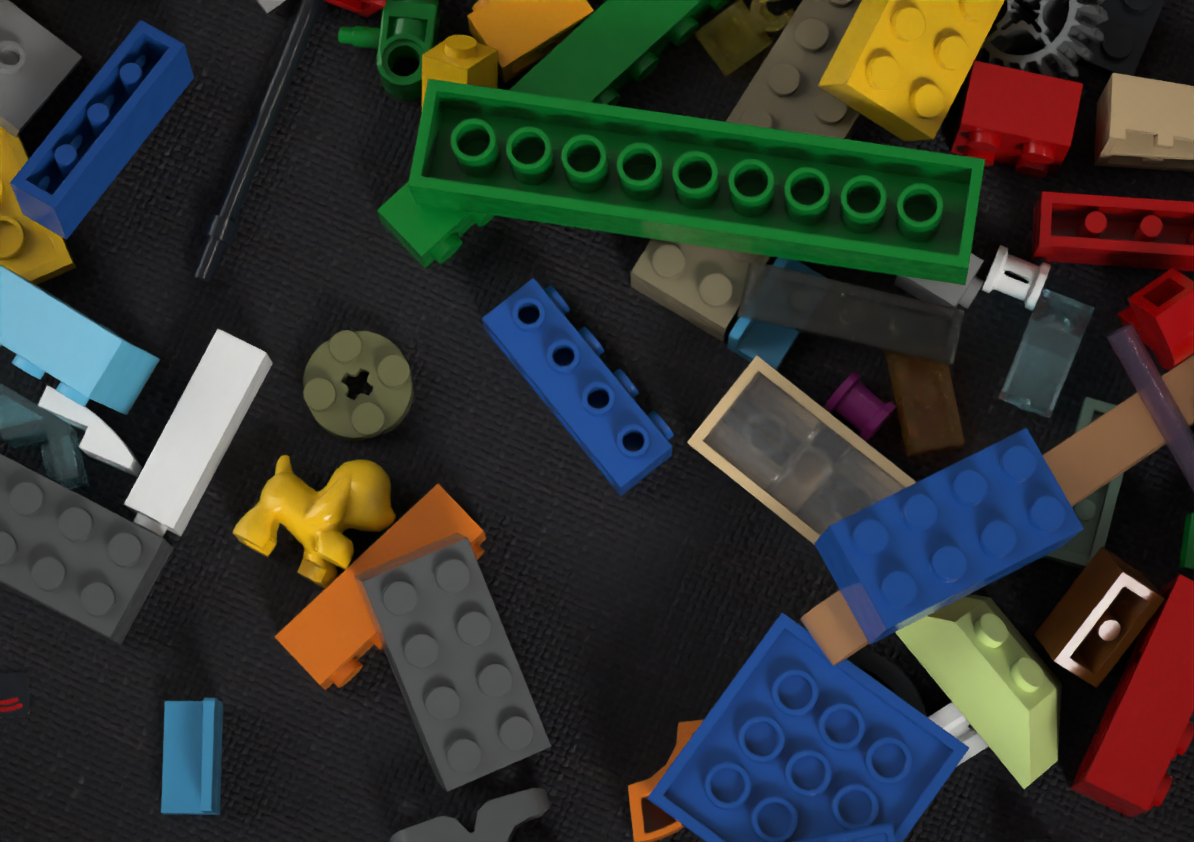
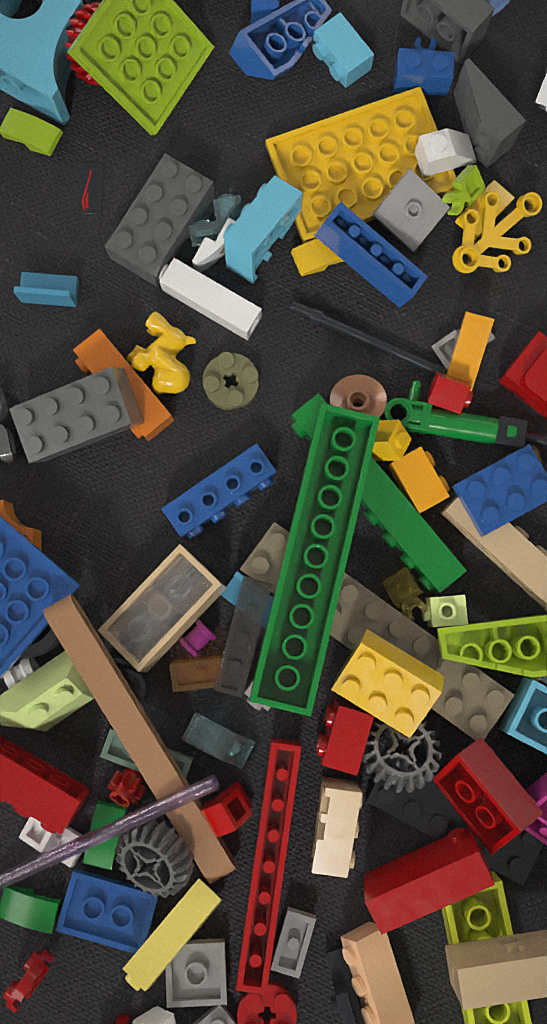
camera: 85 degrees right, 5 degrees up
(103, 244) = (313, 257): none -> yellow slope
(361, 133) = (359, 390): none -> nougat dish
(948, 535) = (102, 677): blue brick -> none
(1033, 273) = (261, 728): white bush -> none
(1099, 617) = (70, 755): dark orange brick -> none
(1149, 514) = (126, 787): none -> red gear

